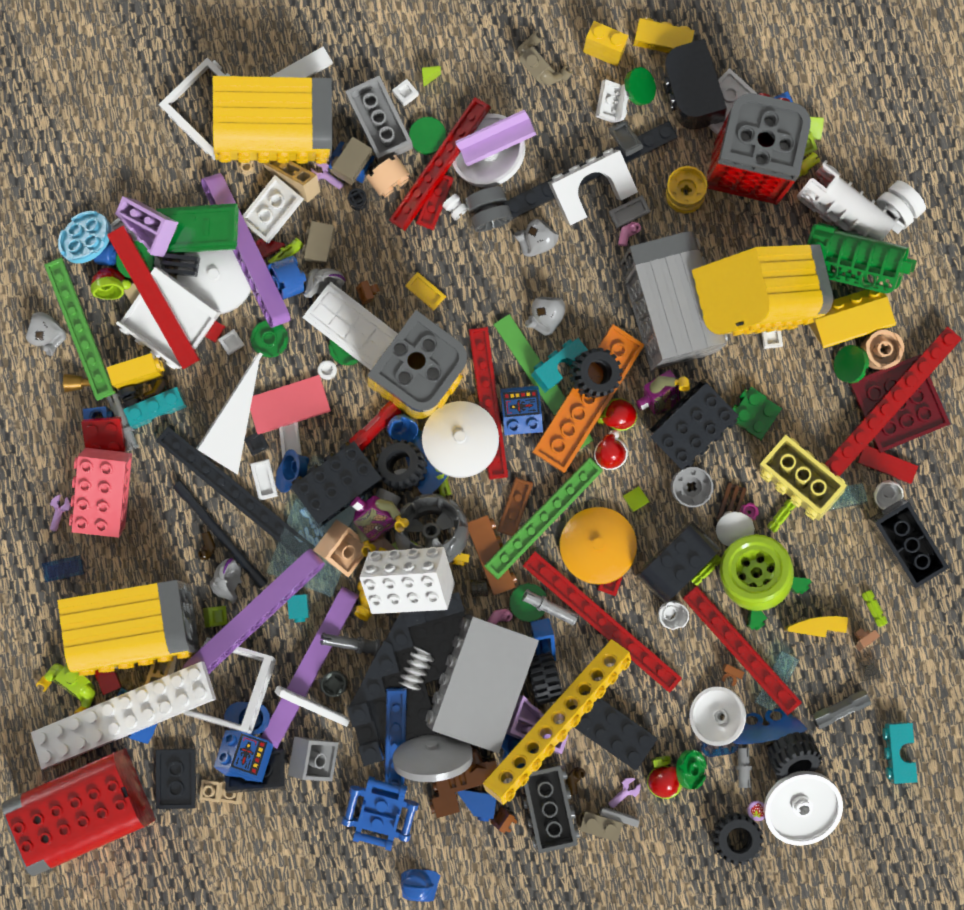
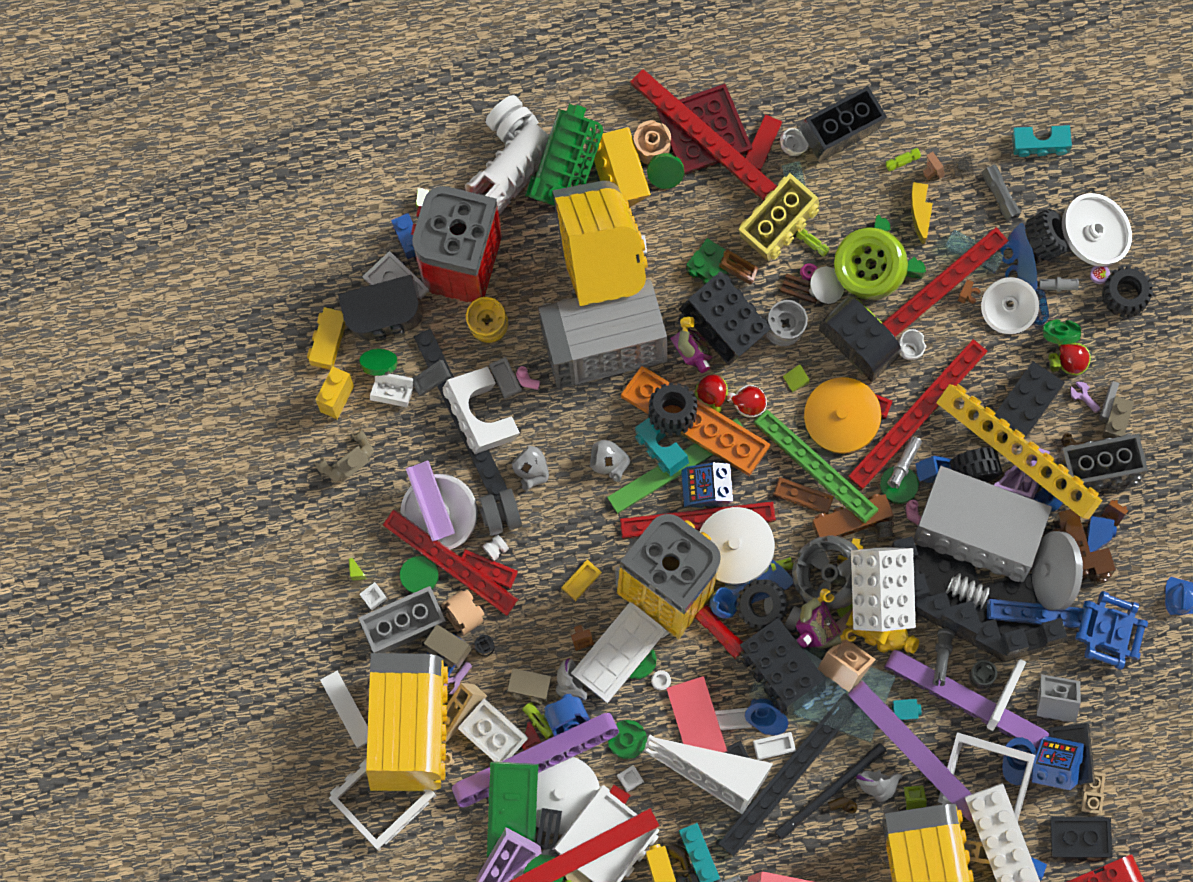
camera: 80 degrees left, 10 degrees down
(755, 426) = (738, 269): none -> dark orange tile

